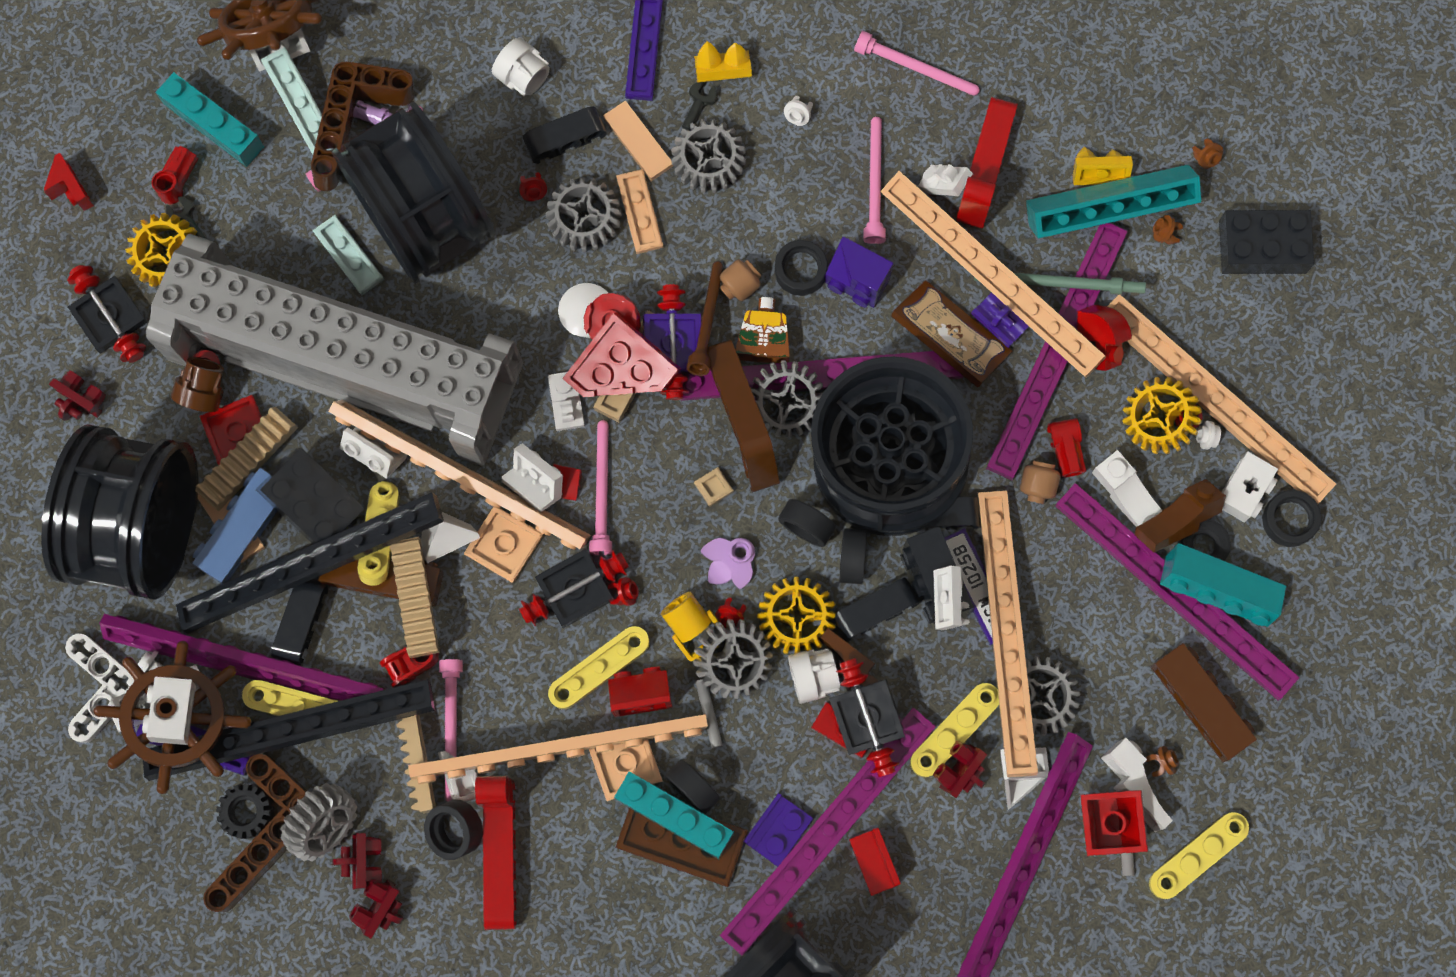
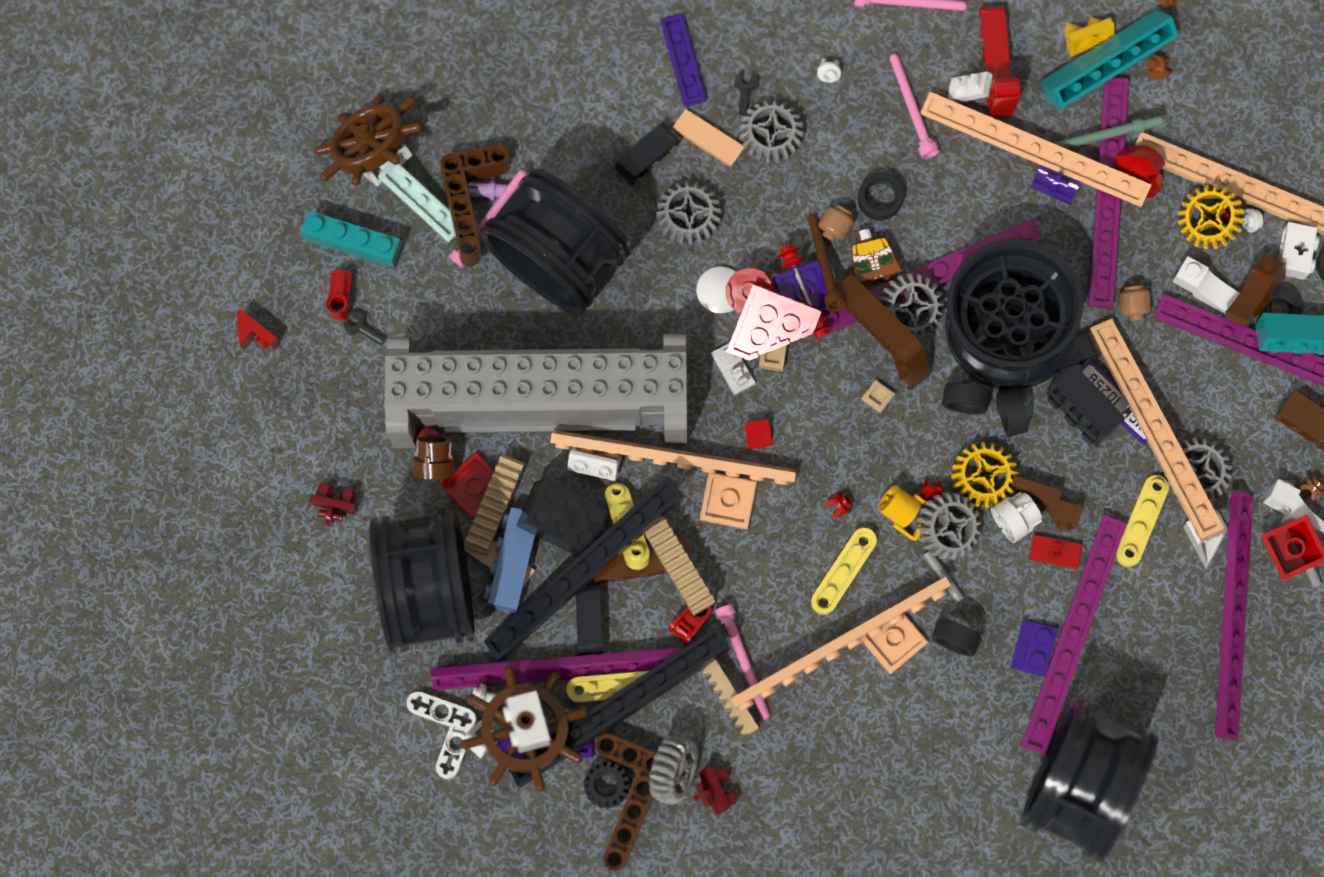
camera: 20 degrees left, 0 degrees up
(107, 314) = (330, 427): black plate -> none
(149, 232) = (351, 369): yellow gear -> none
(348, 255) = (508, 311): light aqua tile -> none
(380, 911) = (747, 821): dark red hips -> none
(437, 837) = (773, 754): black tyre -> none
(446, 537) = (685, 512): white slope -> none
(462, 787) = (772, 705): white tile -> none
(499, 841) = (820, 738): red beam -> none
(520, 67) = (592, 110): white piece -> none
(532, 188) = (639, 206): red plate -> none
(534, 479) = (734, 439): white bracket -> none
(574, 588) = (799, 515): black plate -> none
(601, 540) = (805, 470): bright pink piece -> none
(639, 211) = (732, 195): light nougat tile -> none
(640, 692) = (885, 579): red slope -> none
(655, 843) = (960, 682): reddish brown tile -> none
(674, 815) = (951, 664): teal brick -> none
(715, 66) = (748, 56): yellow tile -> none
(726, 564) = (912, 454): lavender plate -> none
(858, 273) = (930, 185): dark purple slope -> none
(867, 717) = (1073, 533): black plate -> none
(874, 861) = (1119, 645): red panel -> none
(875, 608) = (1044, 448): black beam -> none
(948, 598) = (1105, 417): white plate -> none
(951, 333) = (1021, 208): tile -> none
(964, 773) = (1162, 550): dark red hips -> none
(1066, 442) = (1143, 263): red piece -> none
(1266, 242) = (1240, 51): black brick -> none

